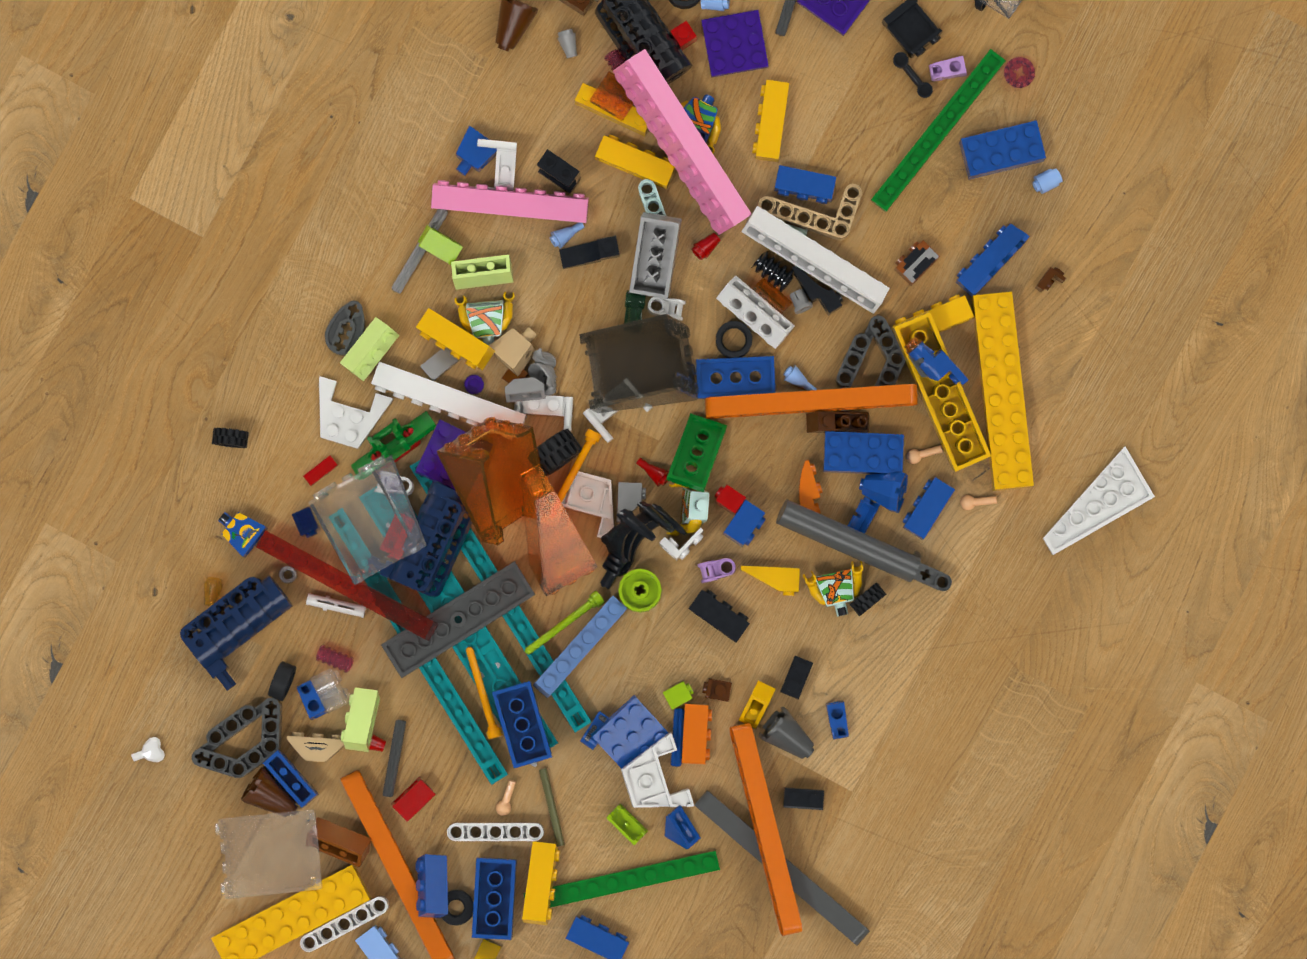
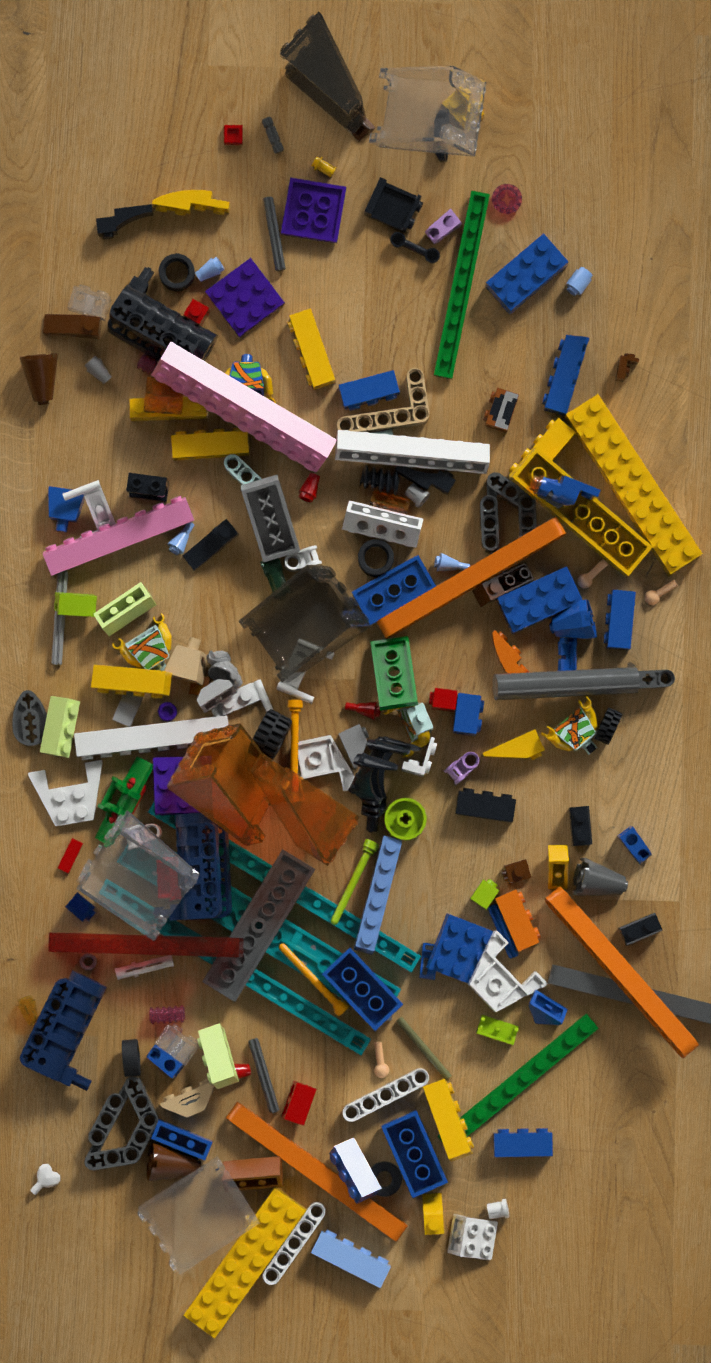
camera: 30 degrees left, 0 degrees up
(241, 532) = (28, 944): torso -> none

